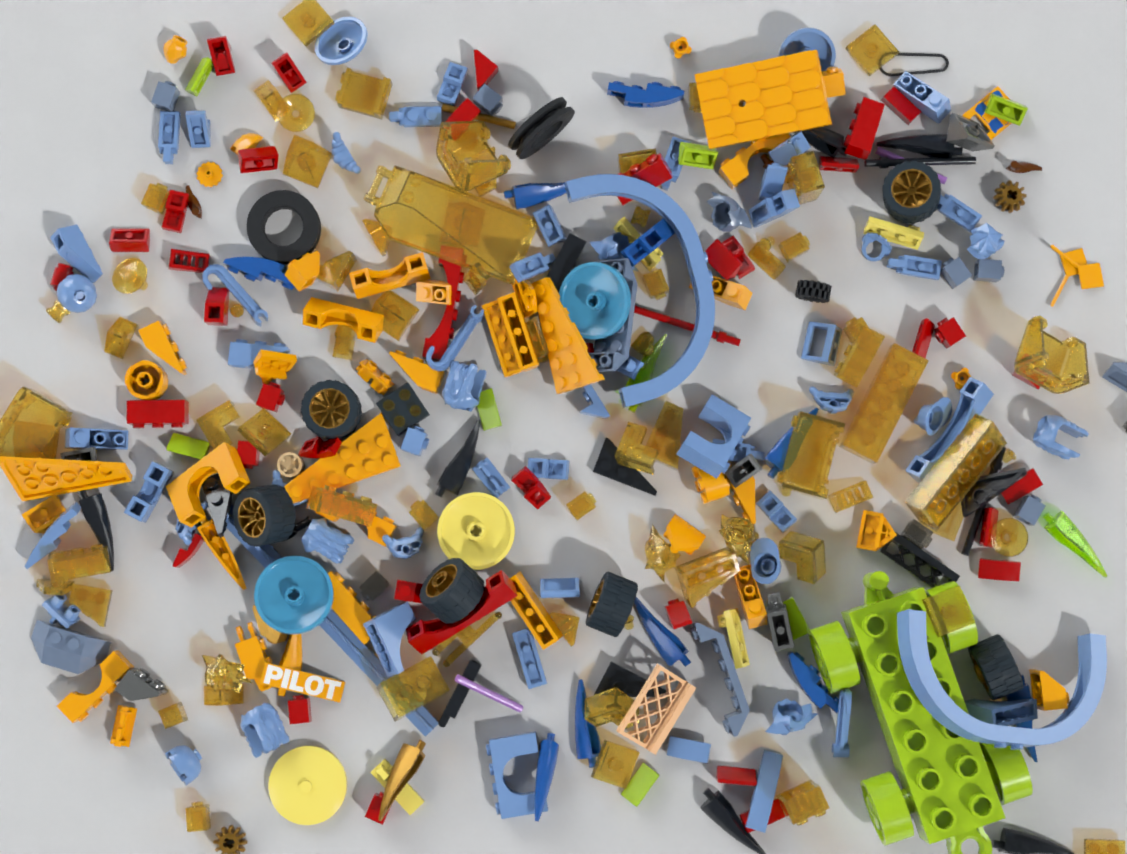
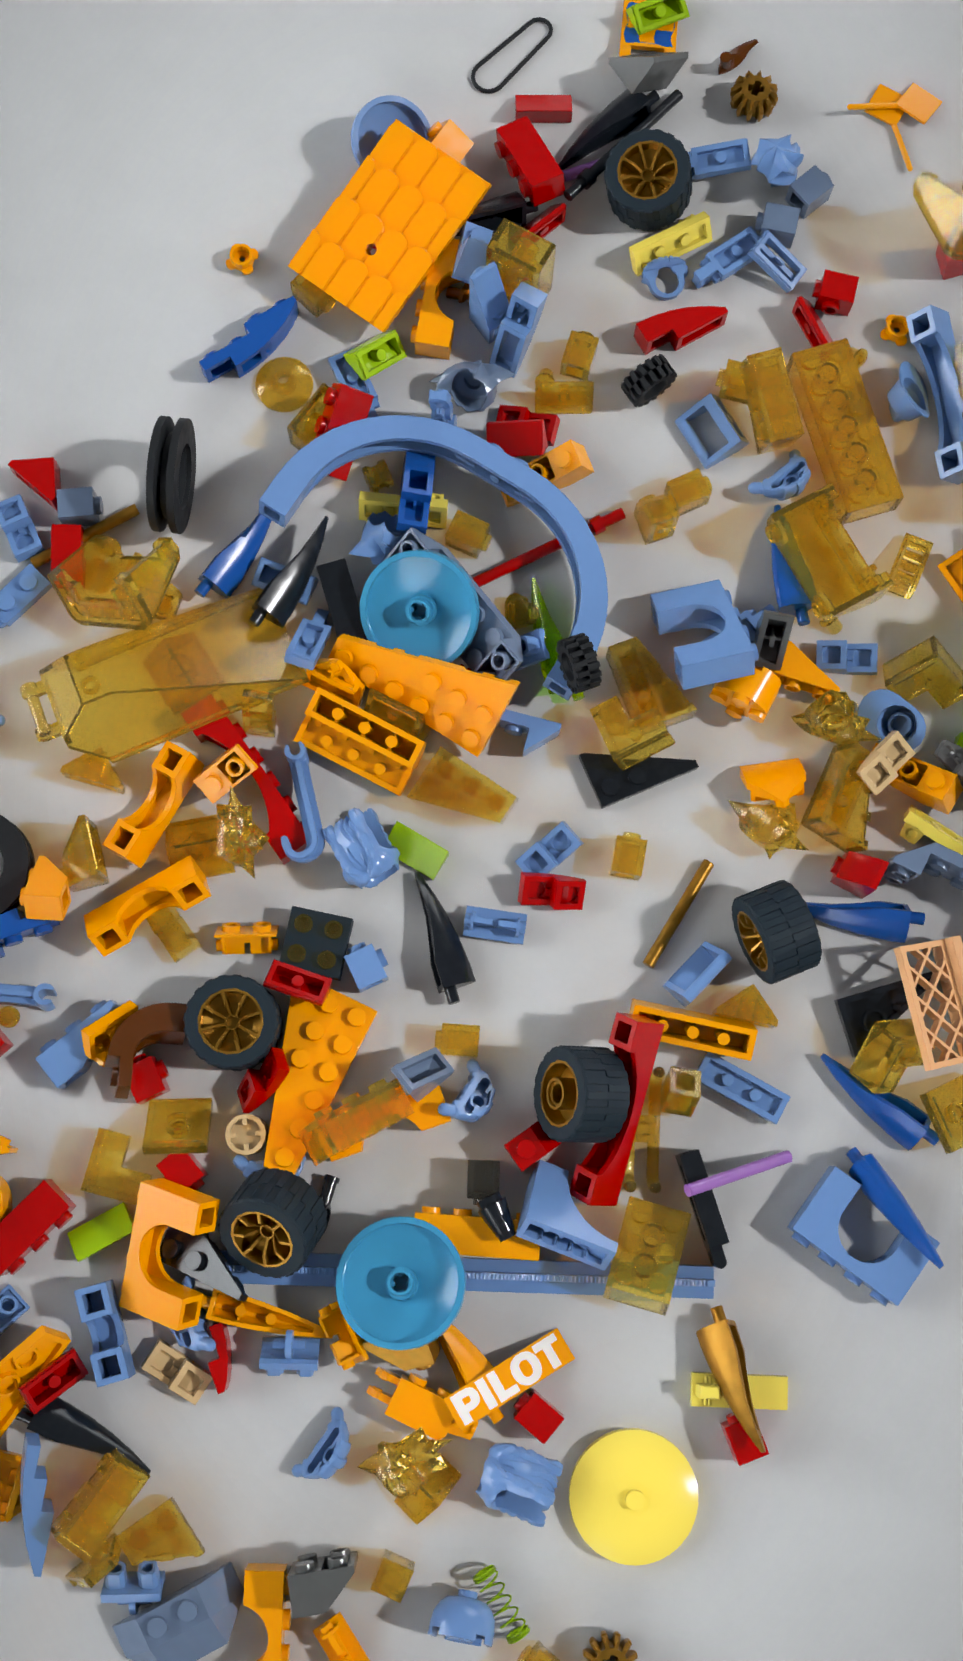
camera: 45 degrees left, 5 degrees down
(108, 491) = (52, 1381): none -> red slope
(164, 538) = (177, 1371): none -> tan slope
(196, 637) = (329, 1452): none -> medium blue piece
(206, 792) = (521, 1631): none -> lime piece
(218, 578) = (289, 1354): none -> medium blue hips
(246, 601) = (349, 1347): none -> light orange hinge
(291, 374) = (147, 1026): none -> reddish brown arch
(326, 540) = (375, 1181): medium blue piece -> none
(364, 607) = (497, 1216): none -> black cone
(376, 419) = (298, 982): none -> red slope
(391, 513) = (423, 1073): none -> sand blue slope
(413, 326) = (238, 834): none -> clear yellow hair
(419, 372) = (296, 883): light orange slope -> none
(476, 530) = (538, 998): light yellow dish -> none
(499, 633) = (681, 1091): none -> clear yellow brick
(536, 402) = (460, 788): none -> clear yellow wedge
(545, 231) = (286, 588): none -> black piece
(579, 553) = (678, 913): none -> pearl gold bar
(638, 396) = (579, 663): none -> black tyre
(640, 137) = (288, 395): none -> clear yellow dish
(698, 215) = (442, 406): none -> medium blue hinge
(740, 576) = (882, 763): none -> tan slope
(751, 359) = (656, 518): none -> clear yellow slope
(780, 362) = (689, 491): none -> clear yellow brick
(856, 277) = (678, 327): none -> red slope
(872, 50) = (454, 77): clear yellow plate -> none
(924, 97) = (563, 74): medium blue slope -> none
(928, 276) = (773, 264): none -> medium blue tile
(929, 373) = (860, 356): none -> clear yellow piece

